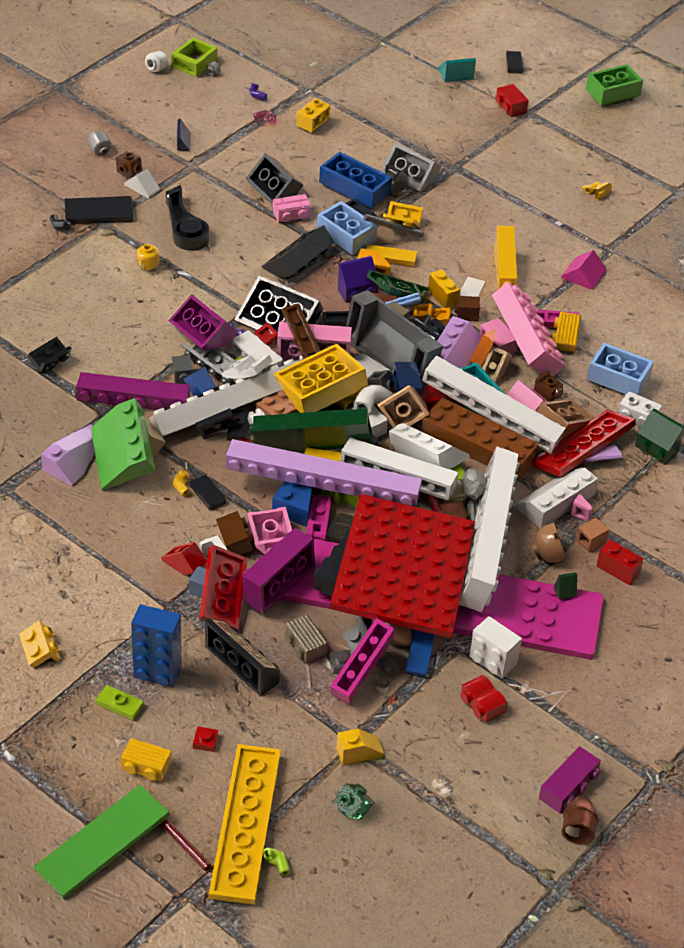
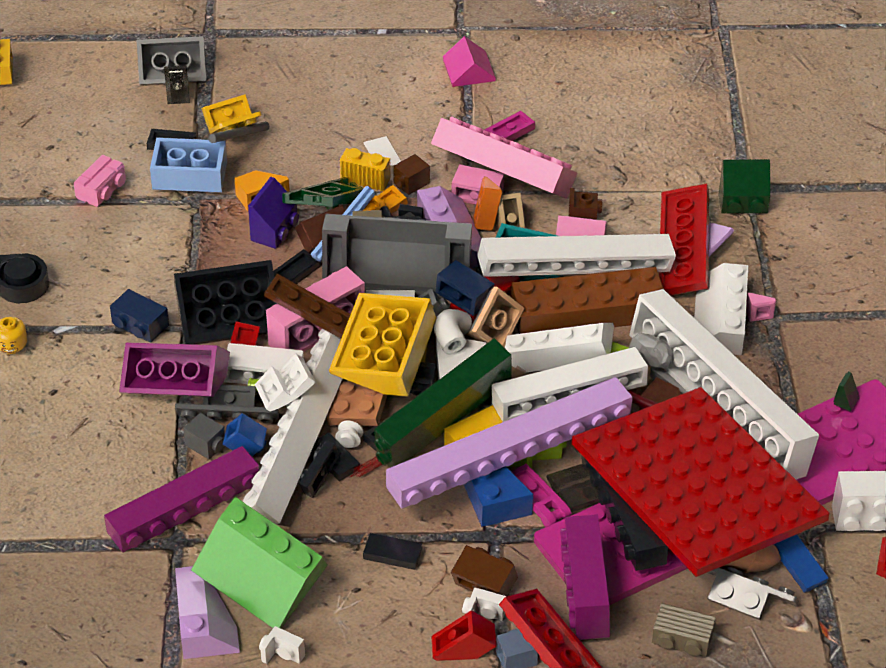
camera: 40 degrees left, 0 degrees up
(49, 354) = (35, 521): black bracket -> none
(89, 493) = (284, 644): none -> white bracket
(180, 481) = (353, 563): yellow arm -> none
(225, 289) = (139, 315): none -> dark blue brick
(268, 527) = (517, 540): bright pink slope -> none
(273, 179) = (42, 162): black slope -> none
(299, 253) = (167, 225): black slope -> none
(338, 660) = (737, 627): flat silver plate -> none
(355, 179) = (133, 106): blue brick -> none
(362, 661) = (777, 608): dark pink brick -> none
(395, 255) = (271, 163): yellow tile -> none
(505, 255) = (388, 98): yellow slope -> none
(549, 544) = (779, 362): medium nougat cylinder -> none
(566, 413) = (635, 220): medium nougat slope -> none
(567, 331) = (536, 134): yellow brick -> none
(592, 534) = (799, 326): nougat brick -> none
(619, 562) = (855, 336): red brick -> none
(620, 369) = (630, 144): light blue brick -> none
(637, 407) = (690, 172): white brick -> none

